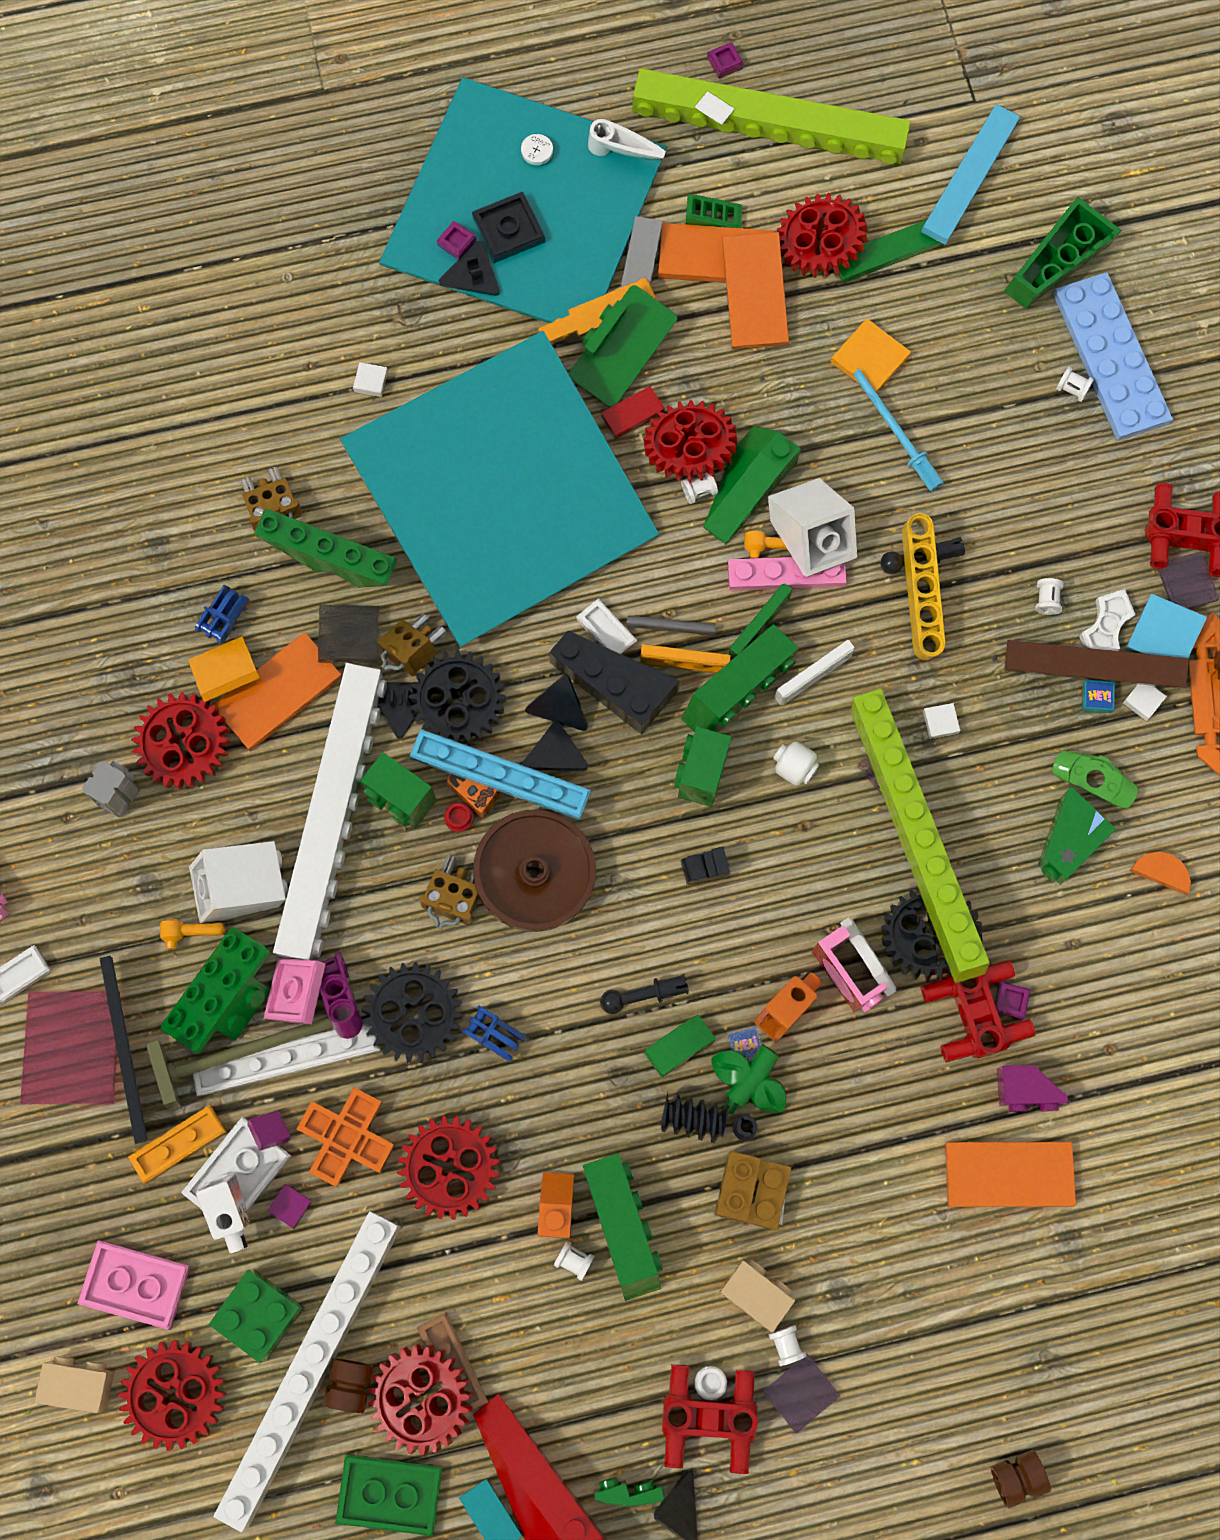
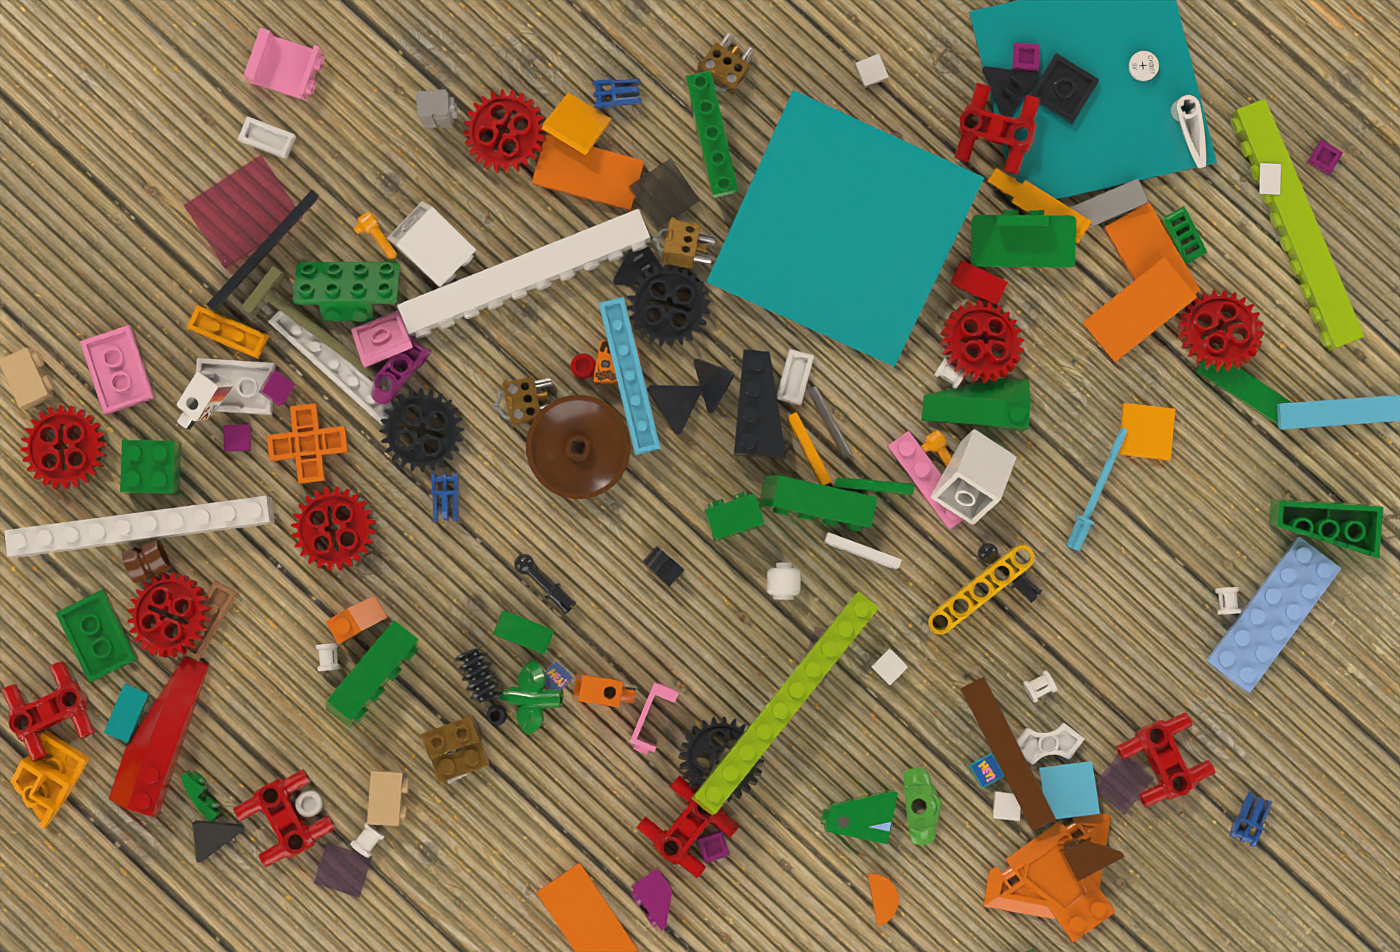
camera: 50 degrees right, 10 degrees up
(398, 790) = (569, 308): green brick -> none
(504, 301) = (997, 128): none -> red piece
(868, 956) = (678, 716): white tile -> none

